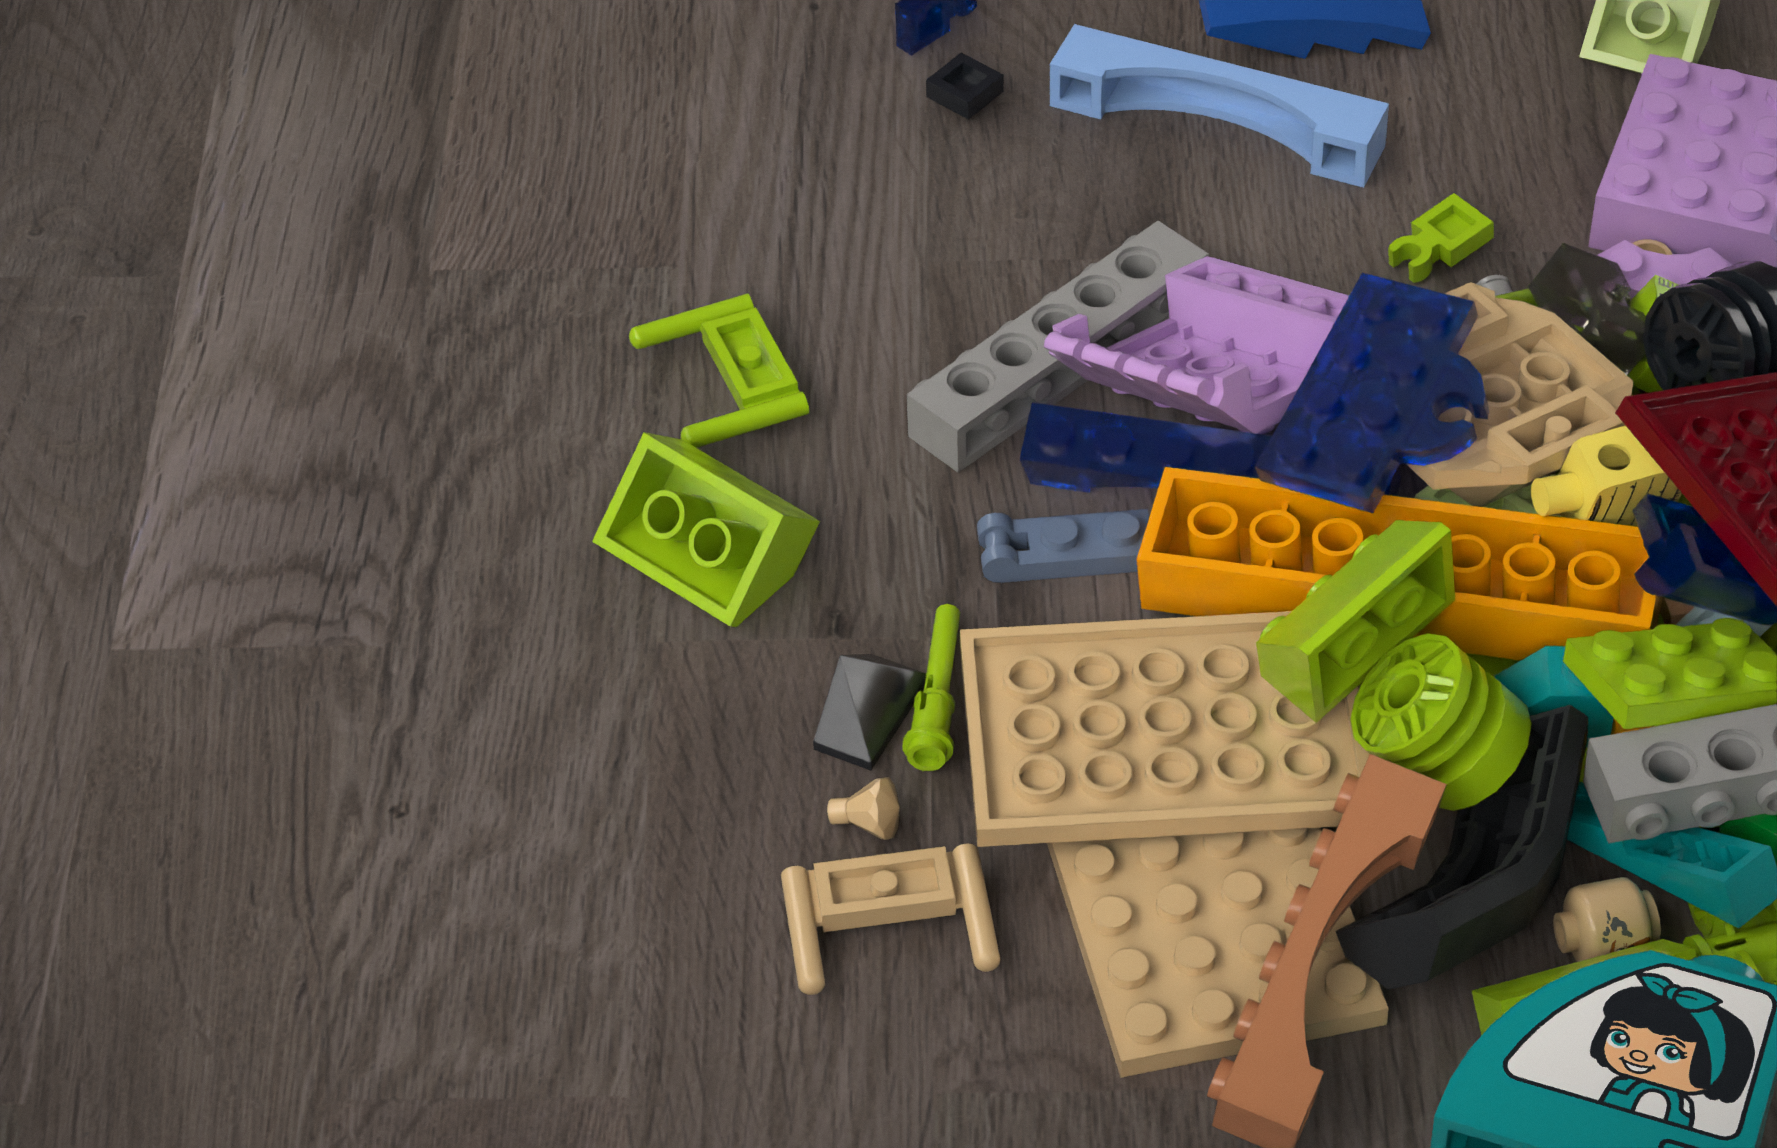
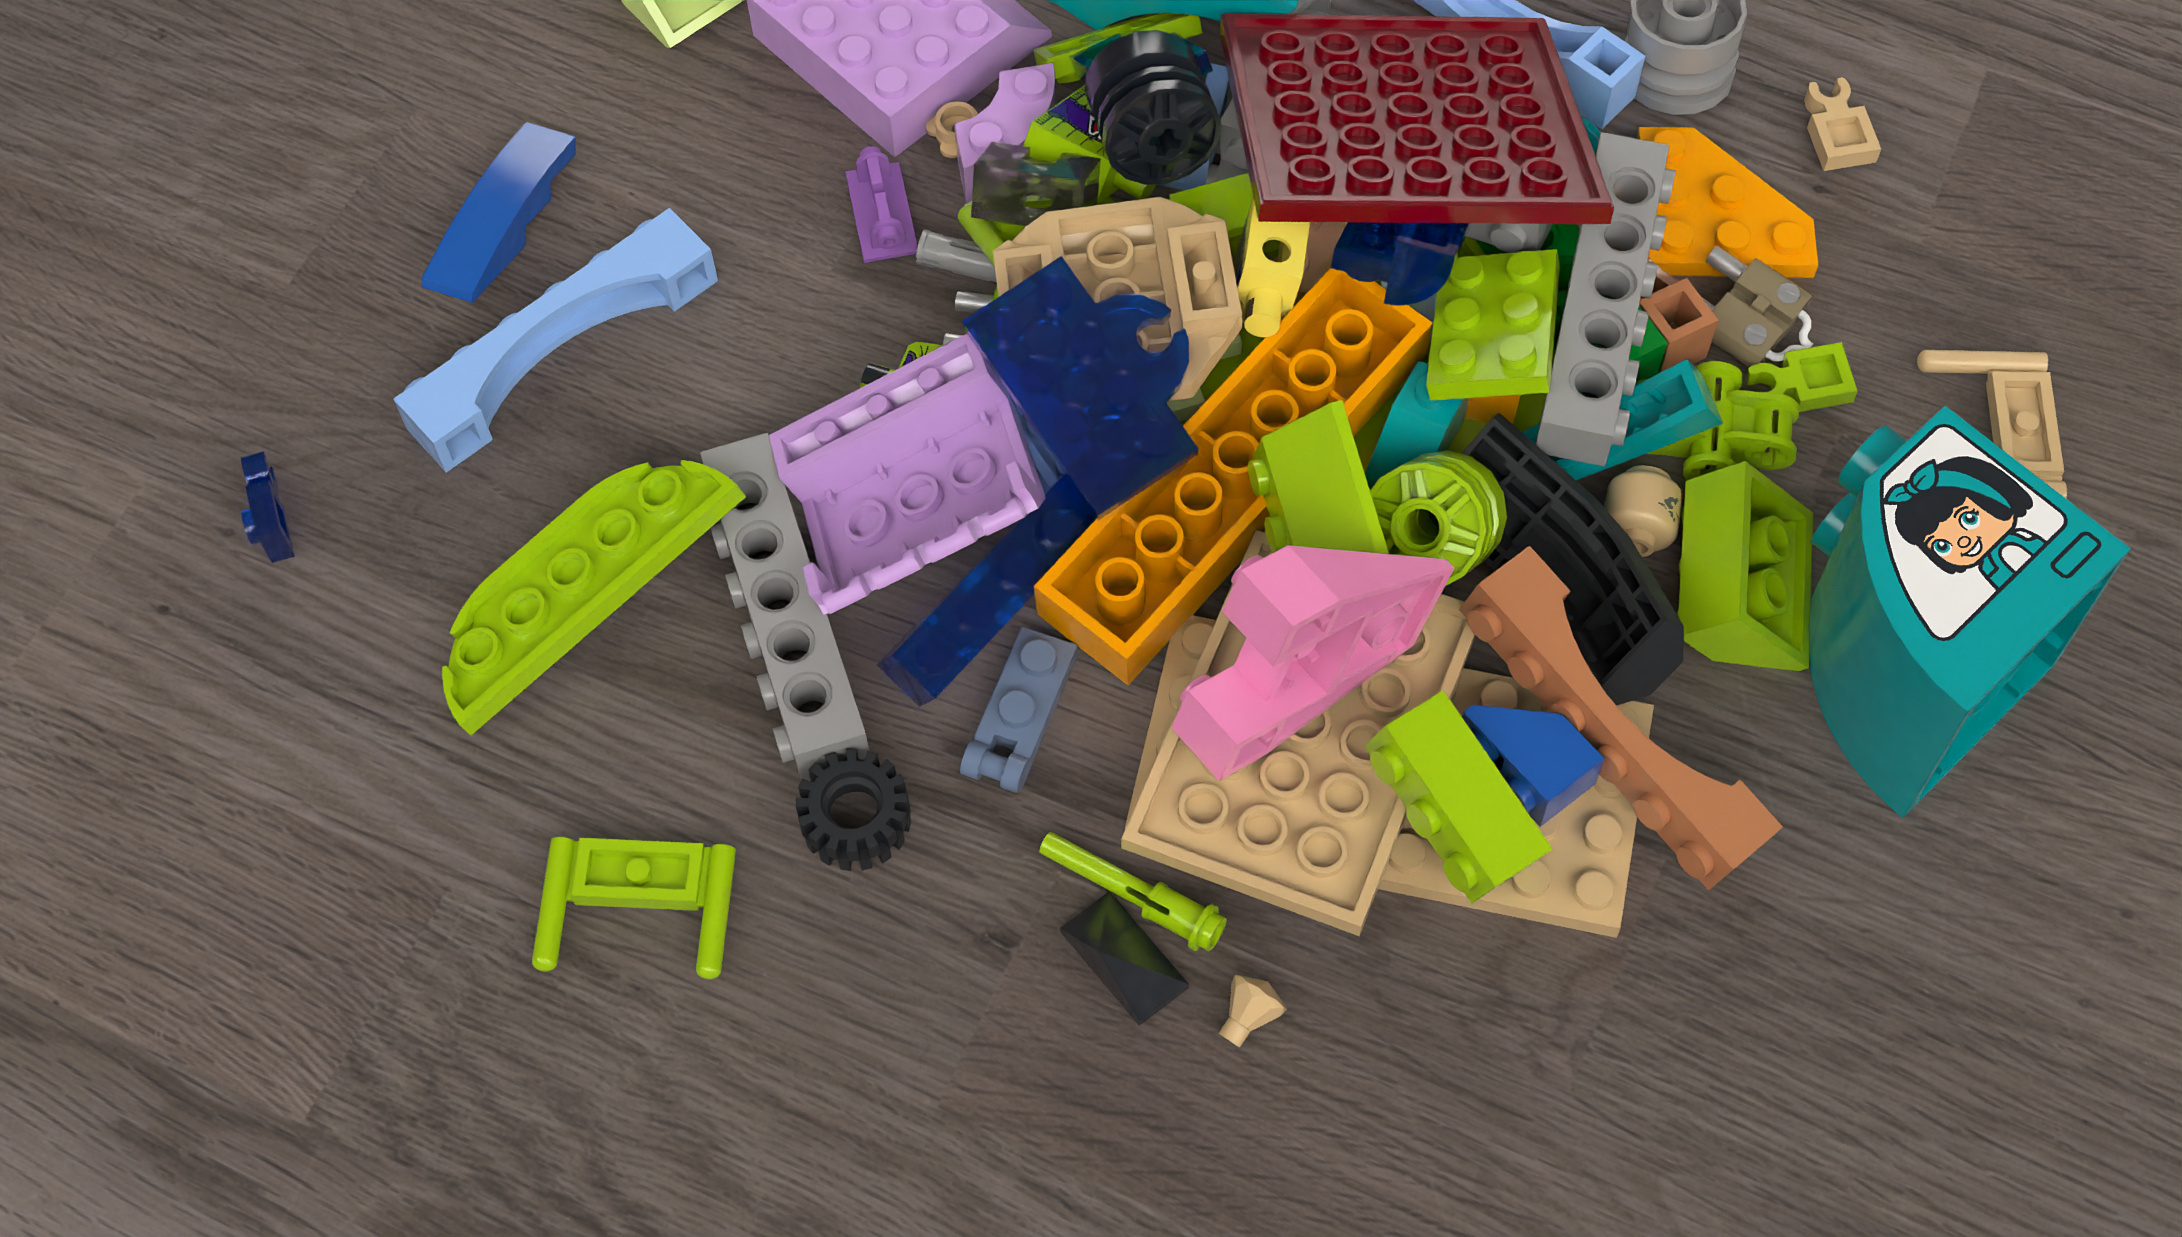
camera: 65 degrees left, 15 degrees up
(703, 529) = (841, 1006): lime slope -> none
(886, 892) = (1351, 1037): tan plate -> none
(893, 493) = (842, 778): none -> black tyre
(964, 85) = (386, 528): black plate -> none
(985, 200) = (575, 579): none -> lime plate
(1145, 842) = (1456, 797): none -> lime brick
(1225, 646) = (1312, 634): none -> bright pink wedge
(1239, 904) = (1537, 755): none -> blue slope
(1444, 233) = (832, 249): lime plate -> none
(1518, 249) = (880, 207): none -> medium lavender hinge

